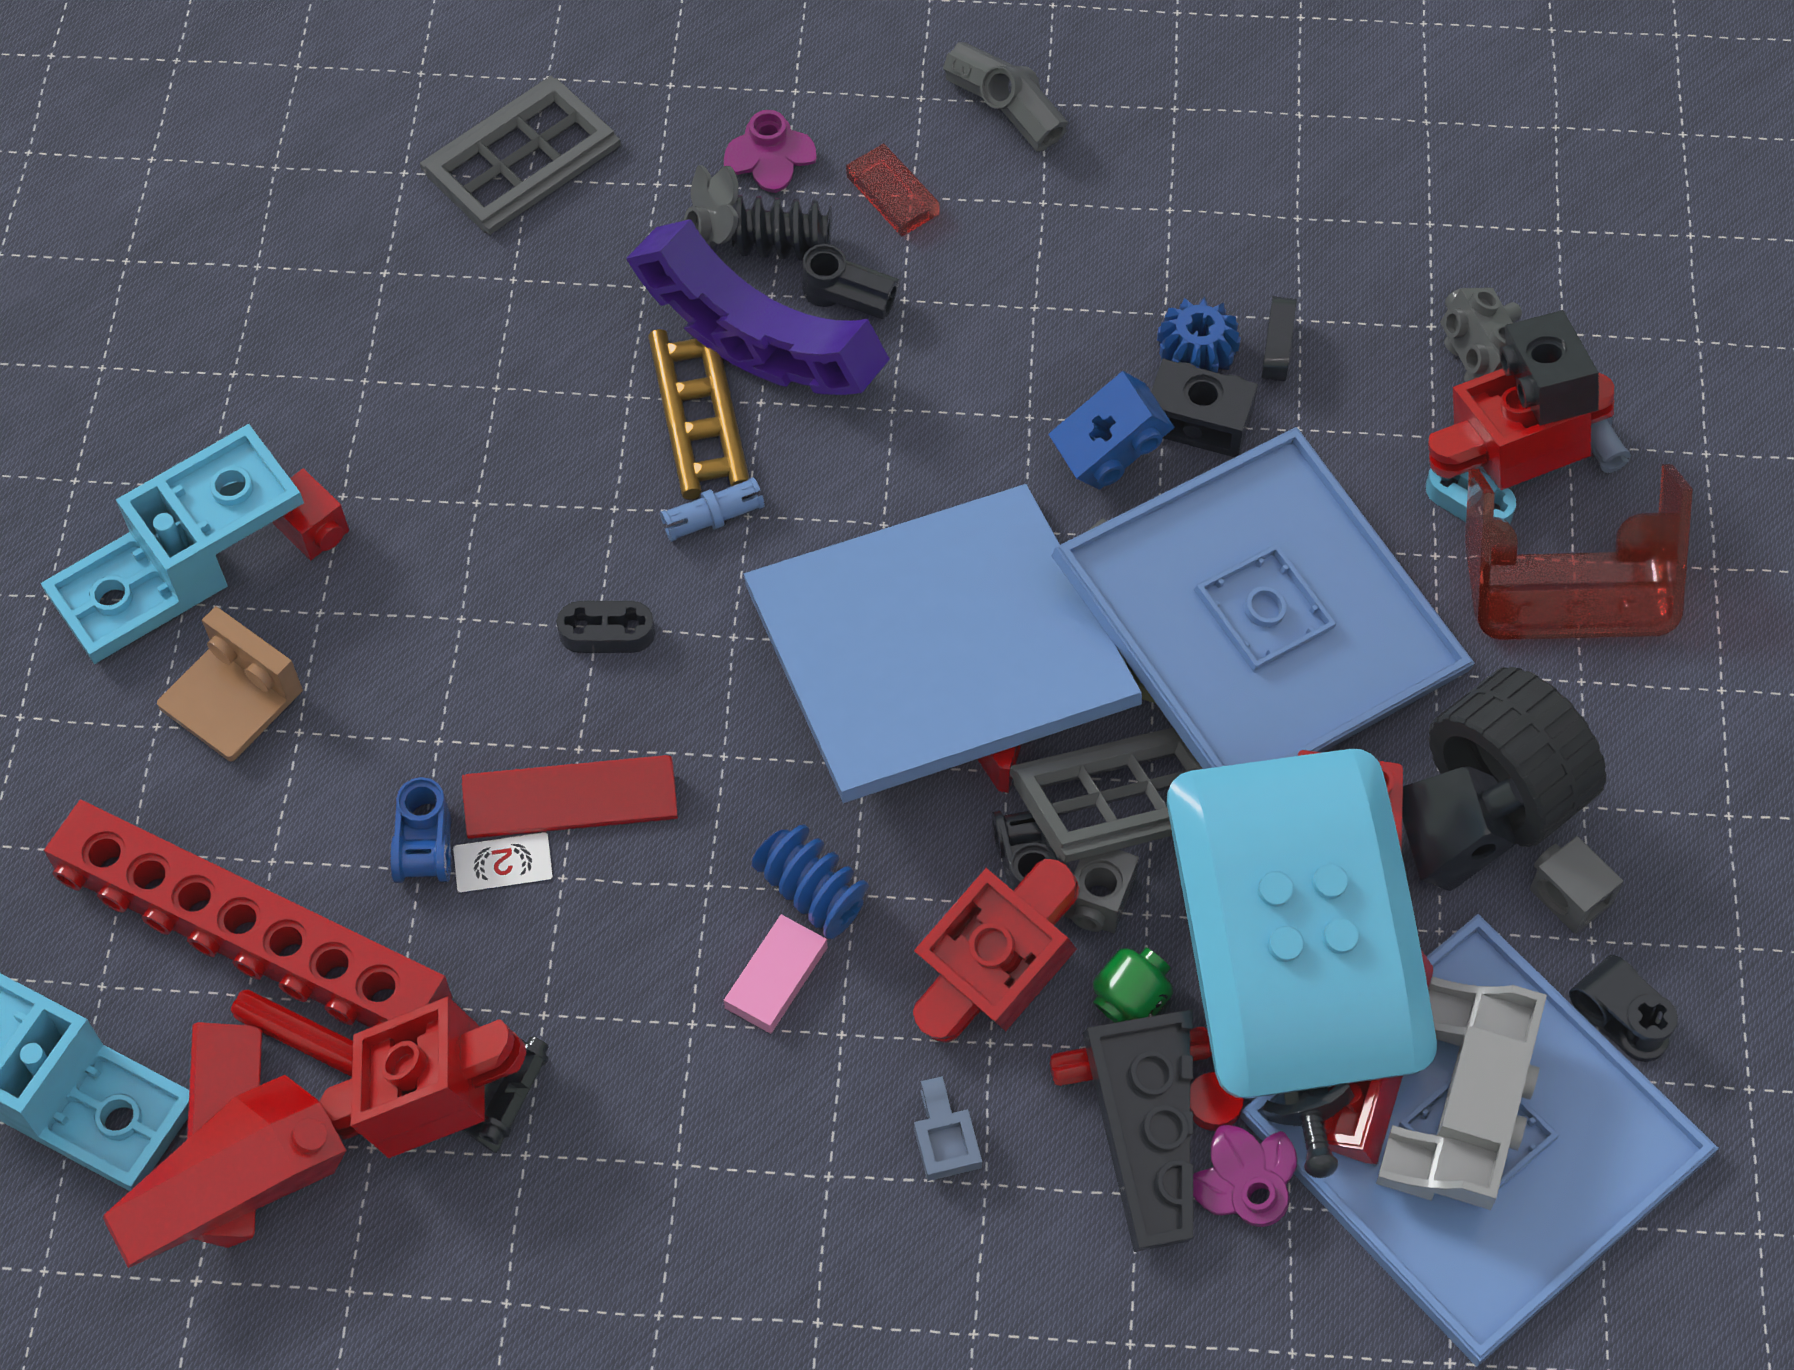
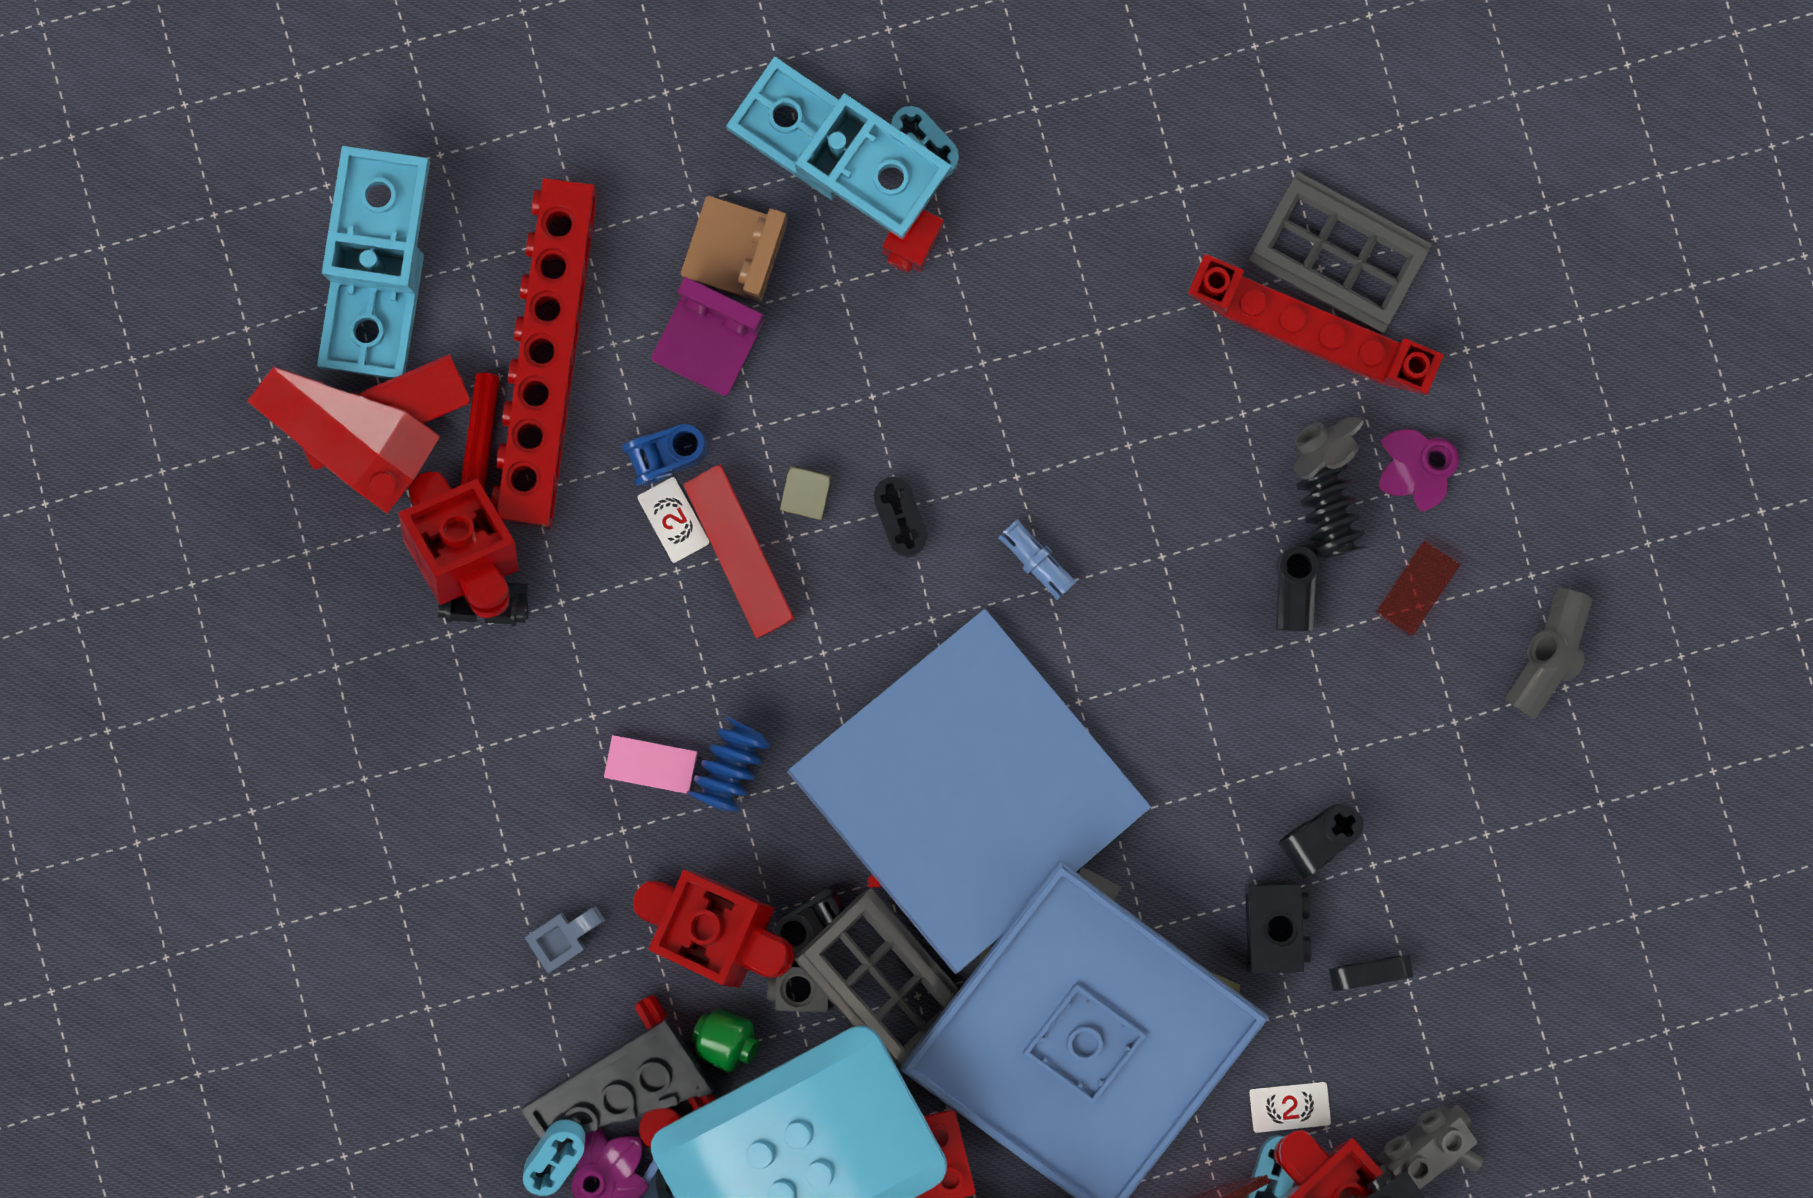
camera: 70 degrees right, 25 degrees up
(309, 745) = (708, 337): none -> magenta bracket
(533, 244) = (1312, 330): none -> red slope
(534, 709) = (805, 493): none -> olive slope
(683, 432) = (1136, 483): pearl gold bar -> none
(750, 326) = (1220, 528): dark purple brick -> none
(1111, 431) = (1213, 865): blue brick -> none
(1120, 334) = (1316, 844): none -> black piece
(1199, 336) = (1345, 920): blue gear -> none
(1212, 1227) = (561, 1162): none -> medium azure beam
(1399, 462) = (1290, 1107): none -> white sticker

